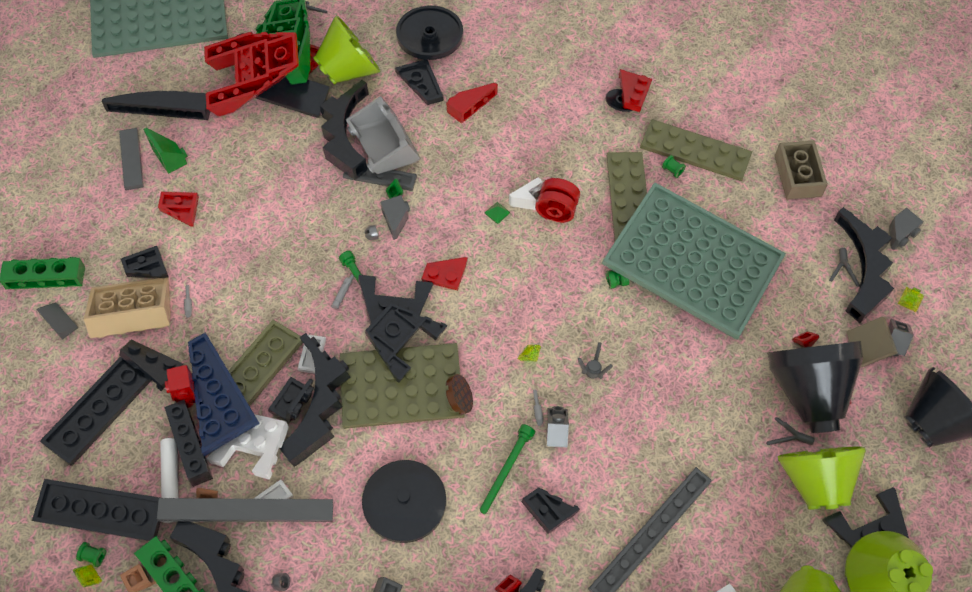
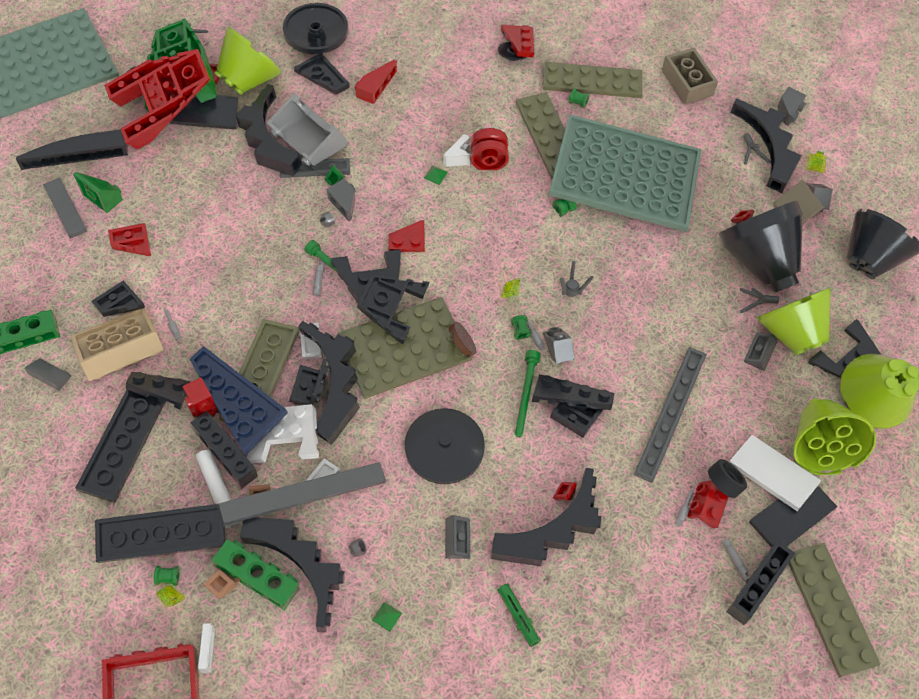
camera: 20 degrees left, 0 degrees up
(525, 397) = (520, 326): none -> green bush
(544, 478) = (559, 390): none -> black wing
(773, 493) = (761, 350): none -> dark grey slope

